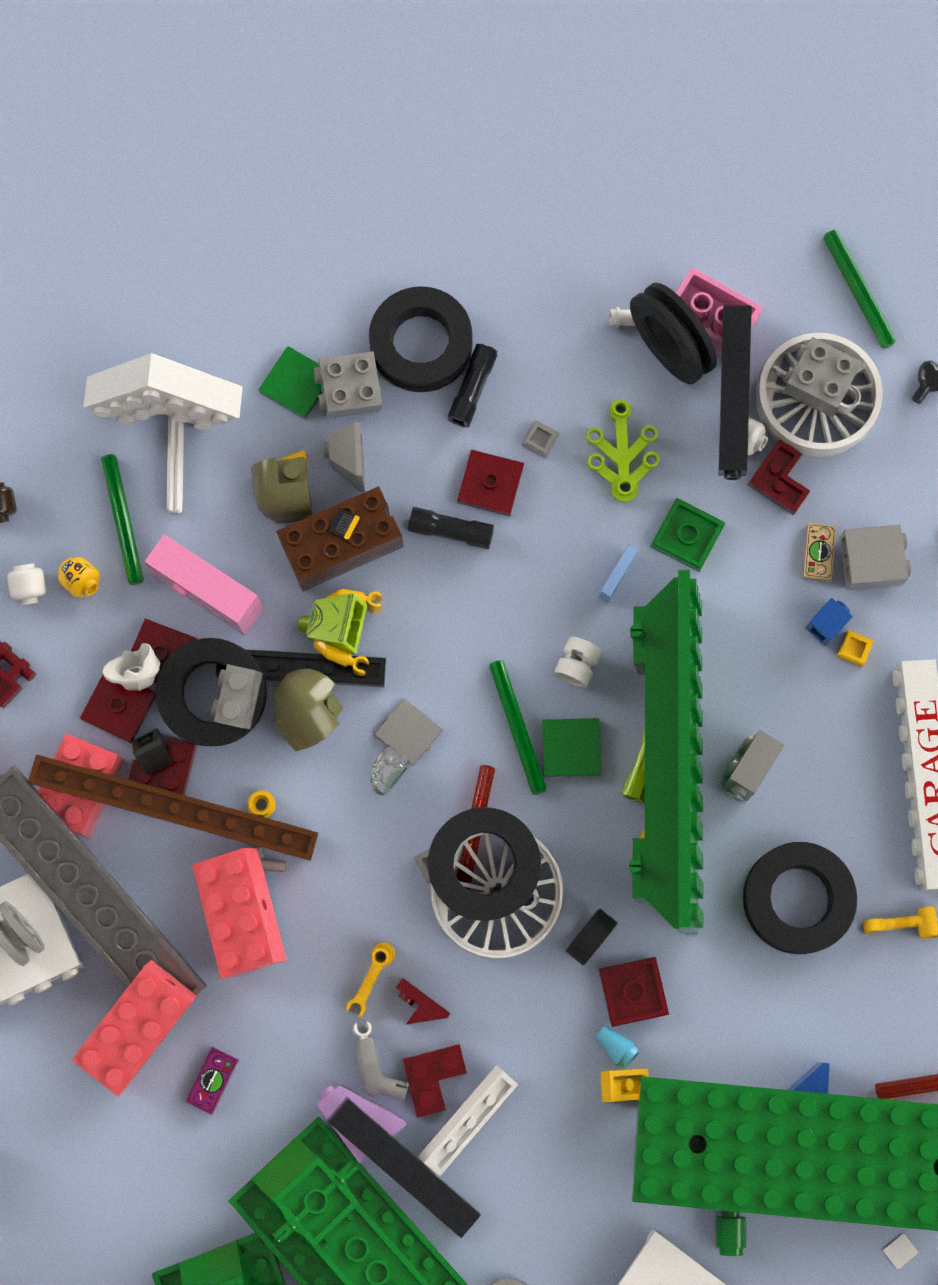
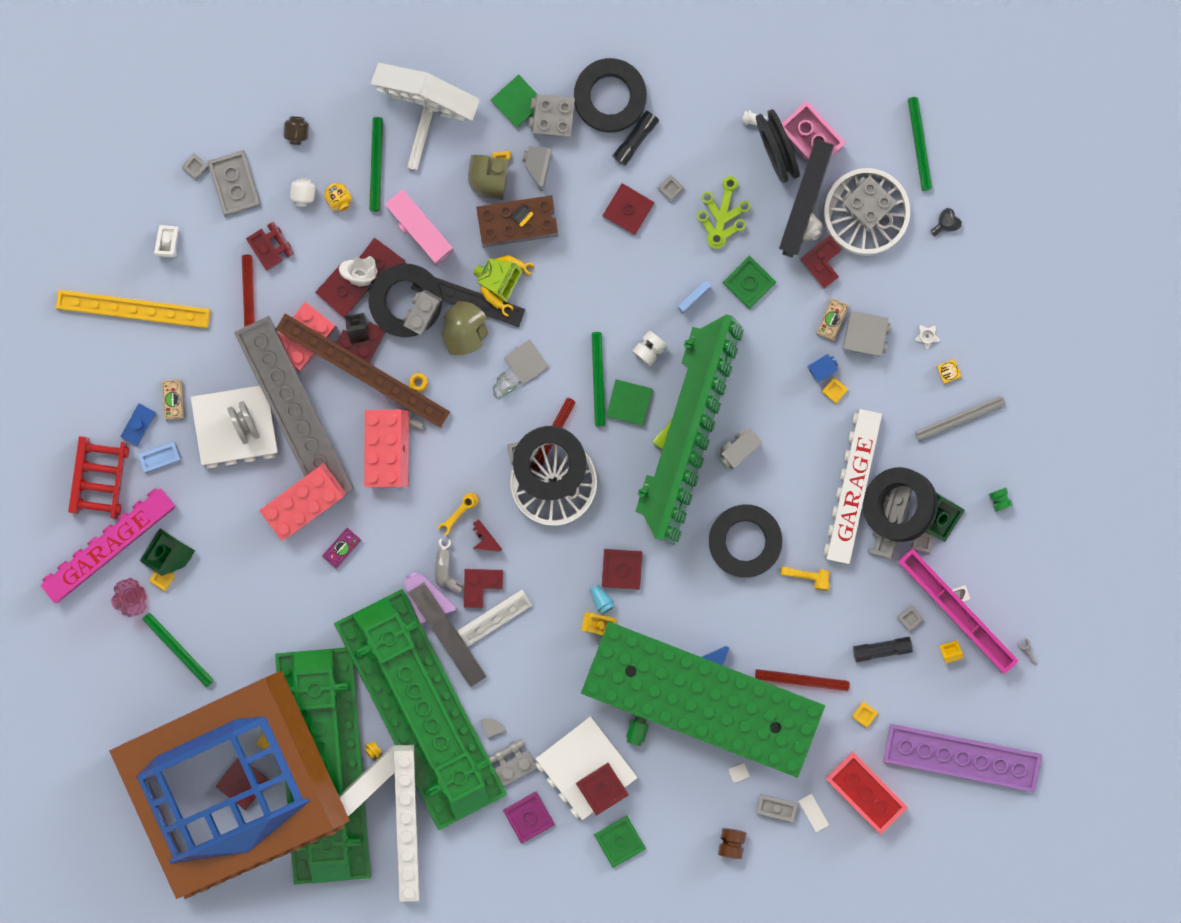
camera: 10 degrees right, 10 degrees up
(471, 532) = (603, 239): black axle -> none
(591, 937) = (604, 527): black tyre -> none

